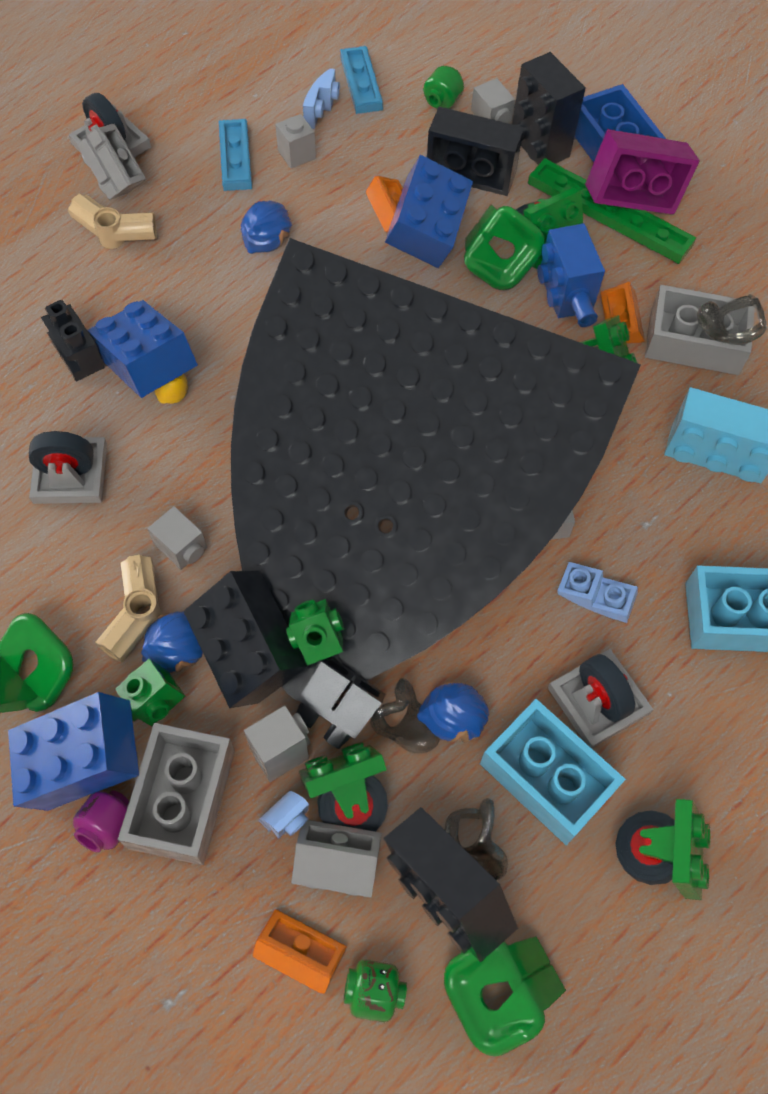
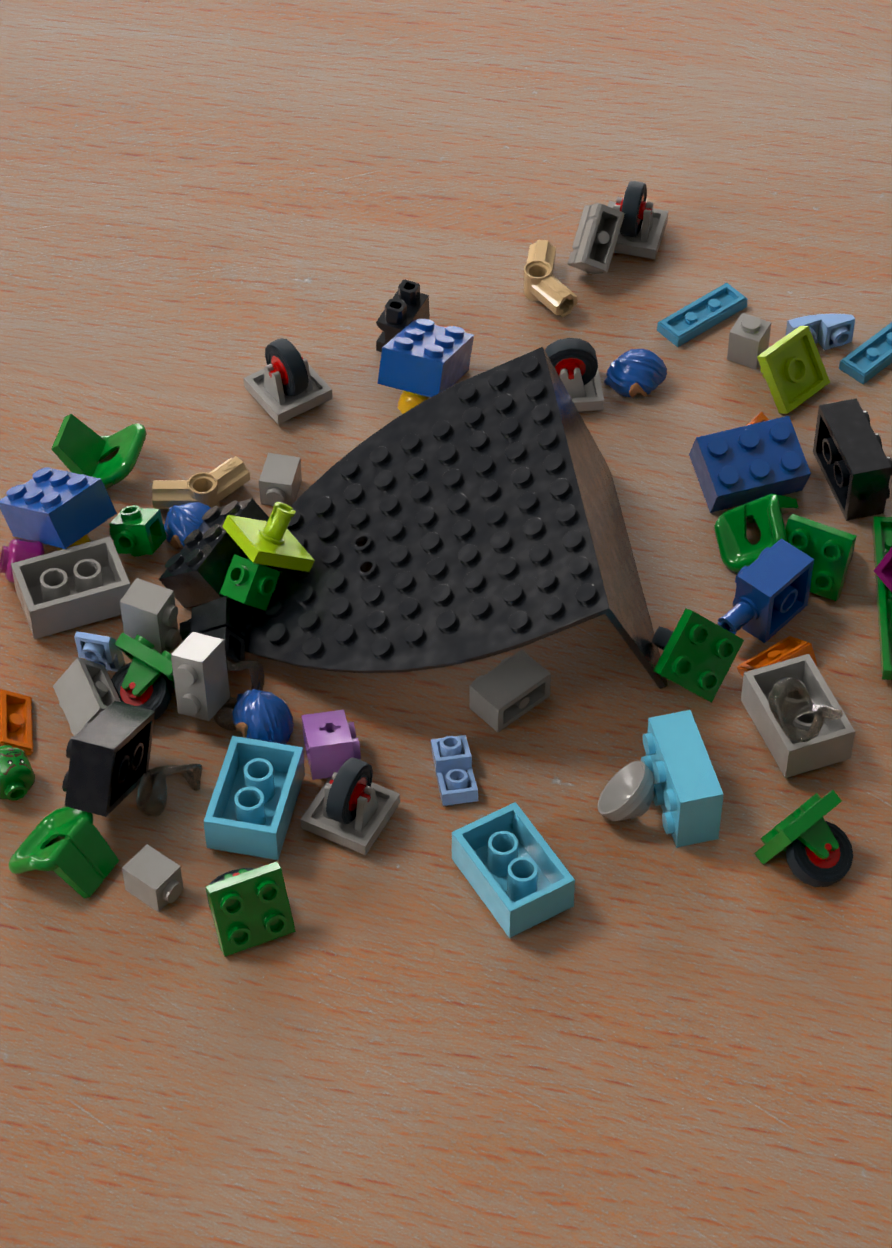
camera: 60 degrees right, 15 degrees down
(239, 270) = (578, 370): none -> plate
(293, 586) = (270, 540): none -> lime tile
(352, 132) = (793, 369): none -> lime tile
(396, 739) = (200, 676): none -> light grey brick
(528, 673) = (329, 742): none -> medium lavender brick
(587, 917) = (153, 878): none -> light grey brick
(694, 487) = (627, 793): none -> light grey piece

